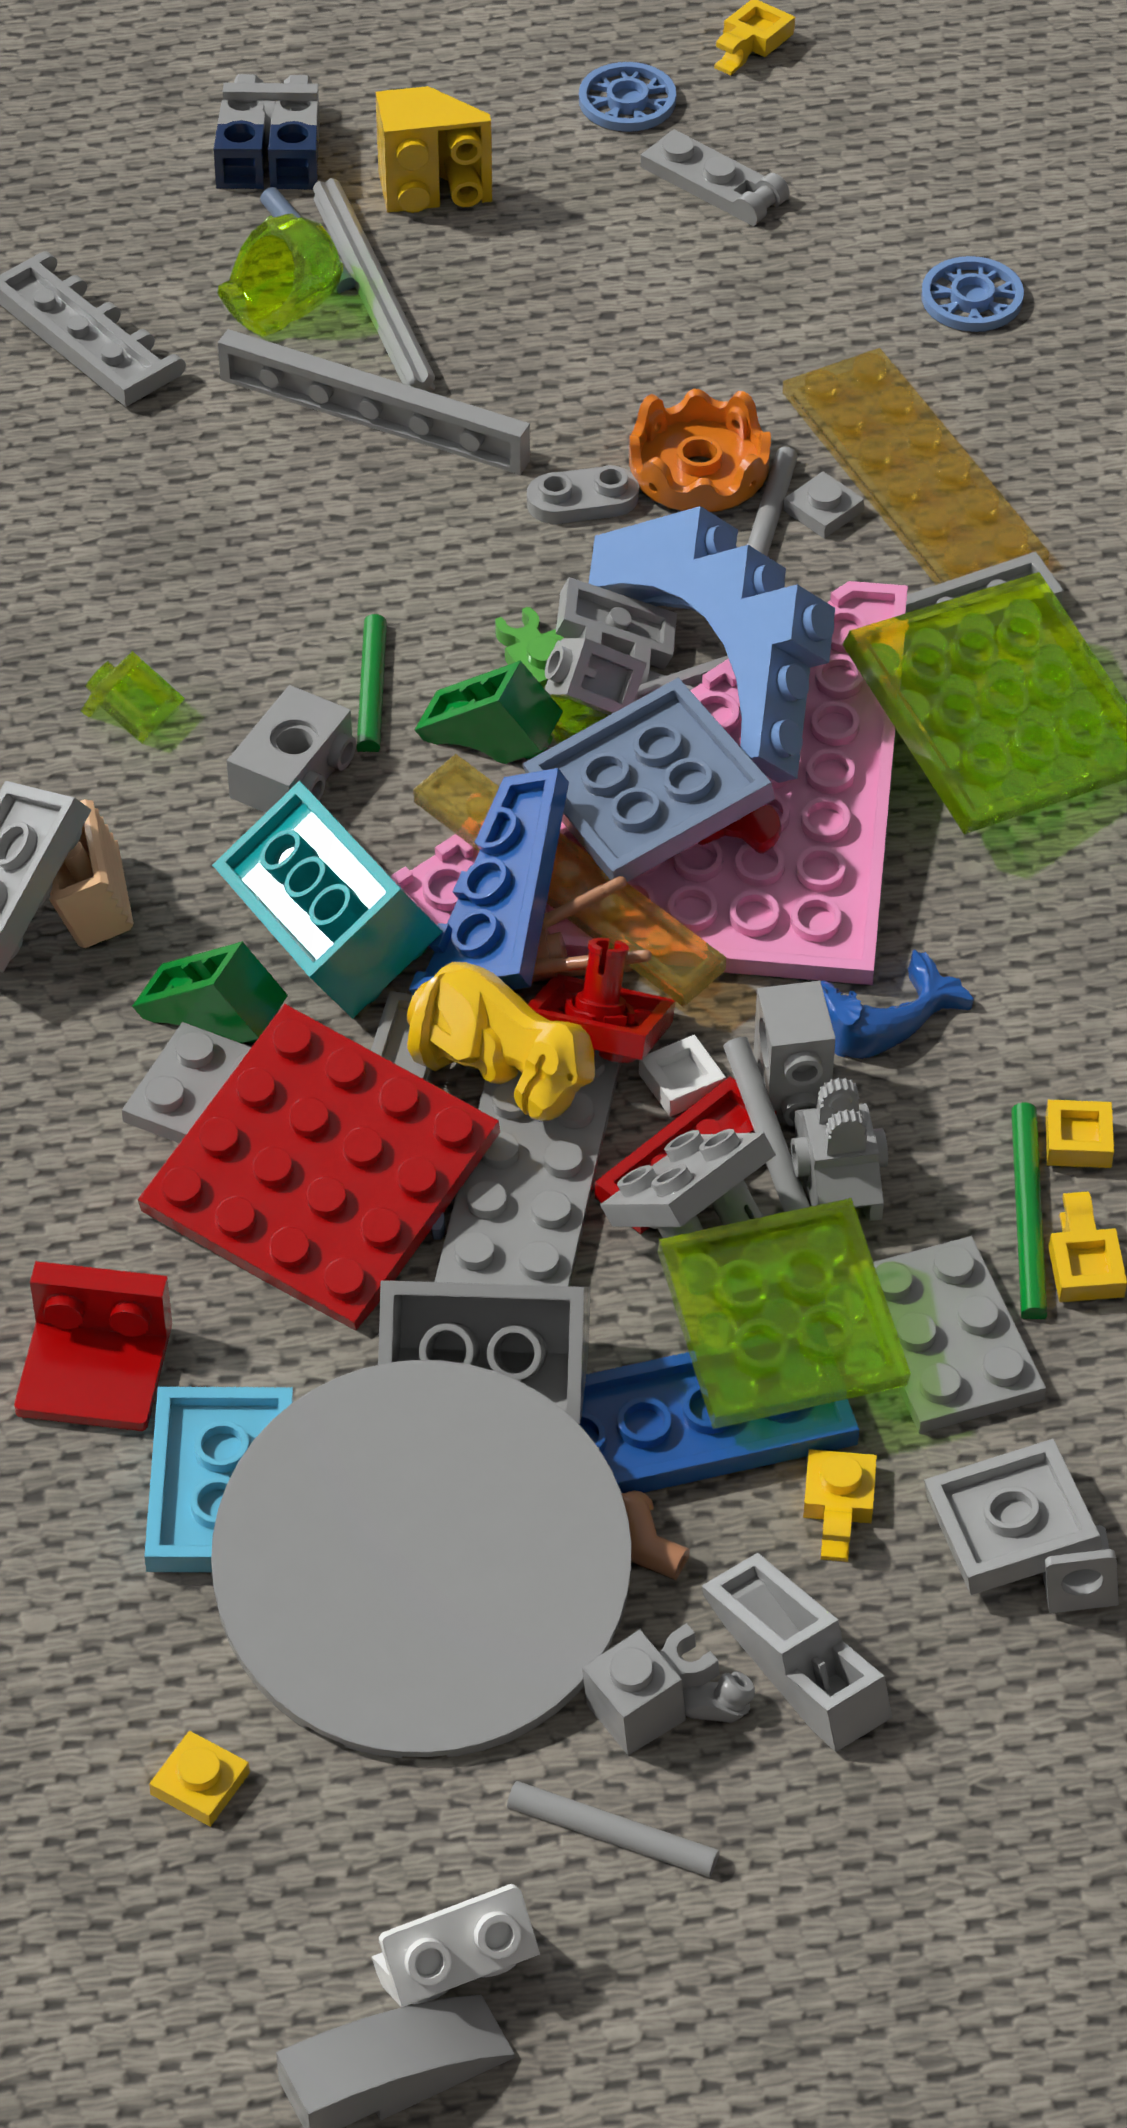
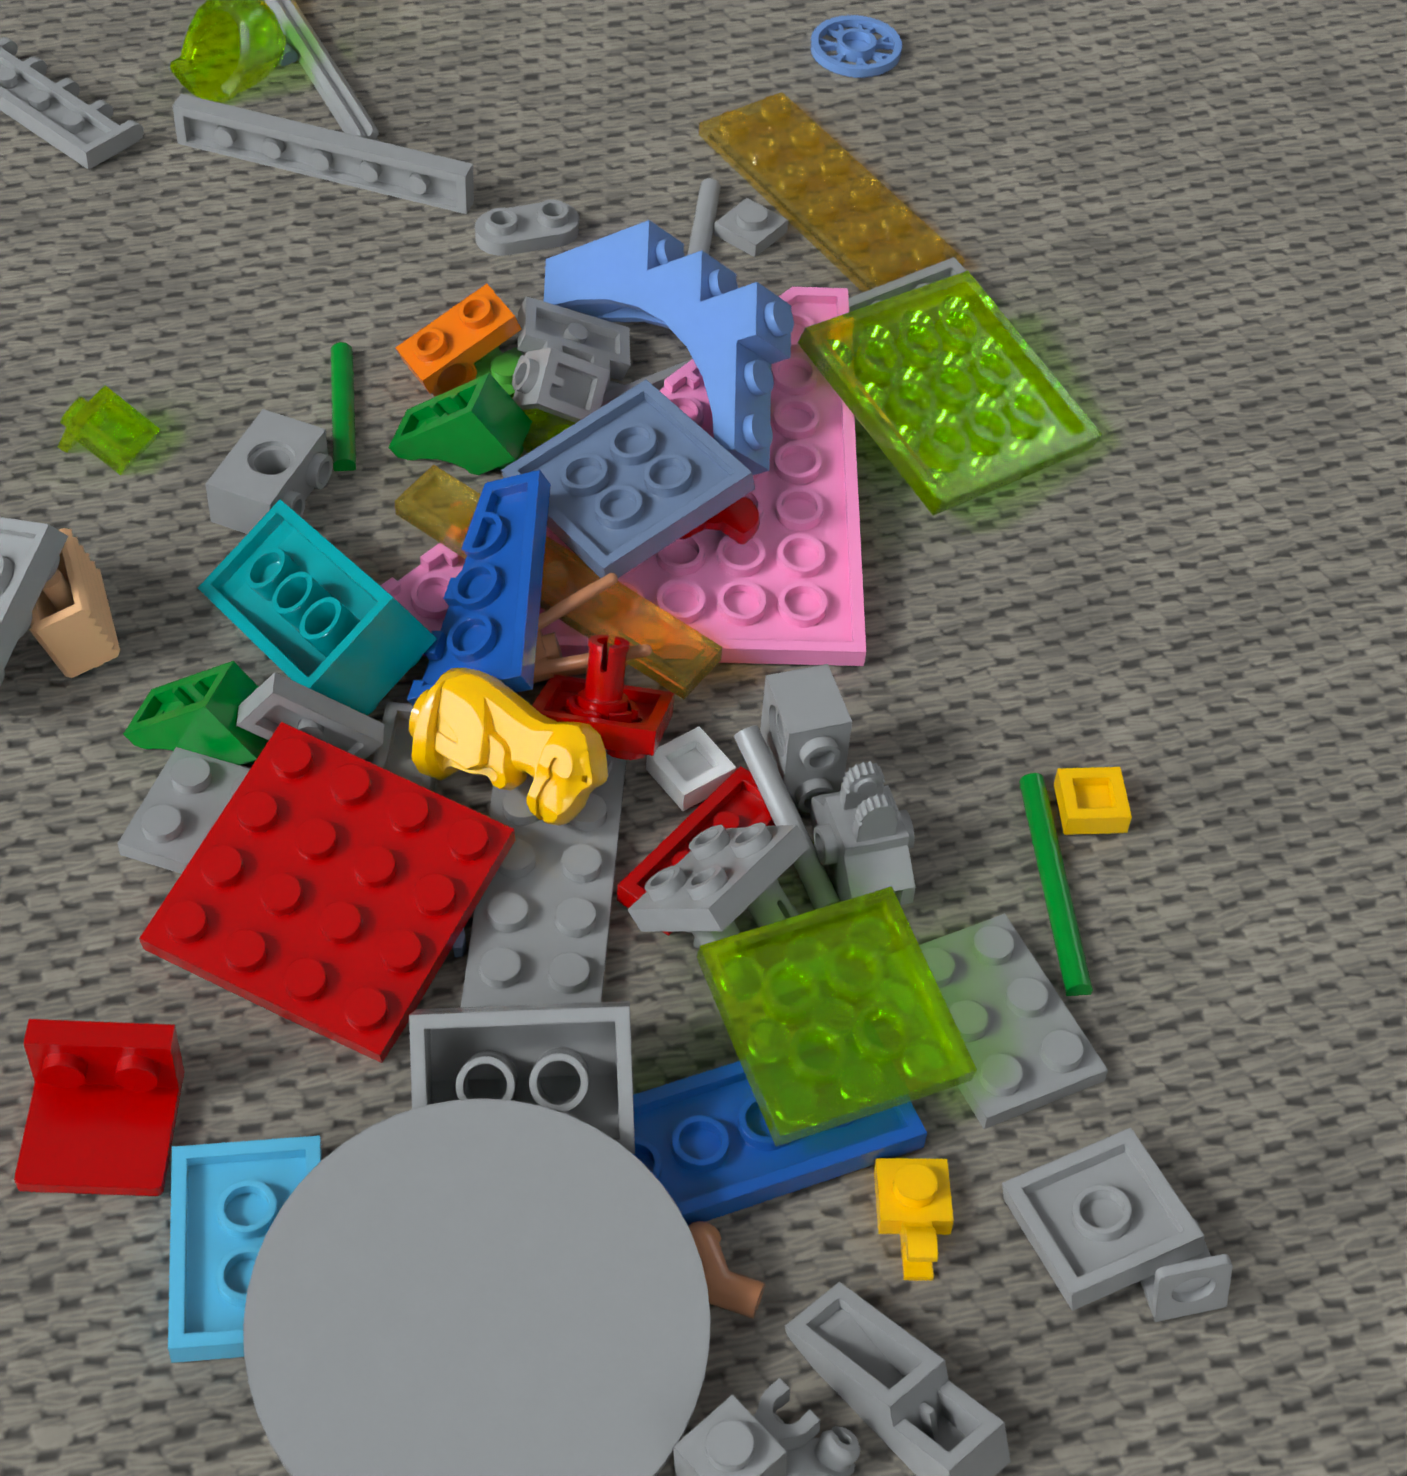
camera: 10 degrees left, 0 degrees up
(313, 996) = (311, 712): none -> light grey plate
(485, 626) = (448, 347): none -> orange plate
(706, 428) = (628, 163): orange plate -> none
(868, 1030) = (881, 708): blue animal -> none
(1084, 1259) = (1121, 928): yellow plate -> none

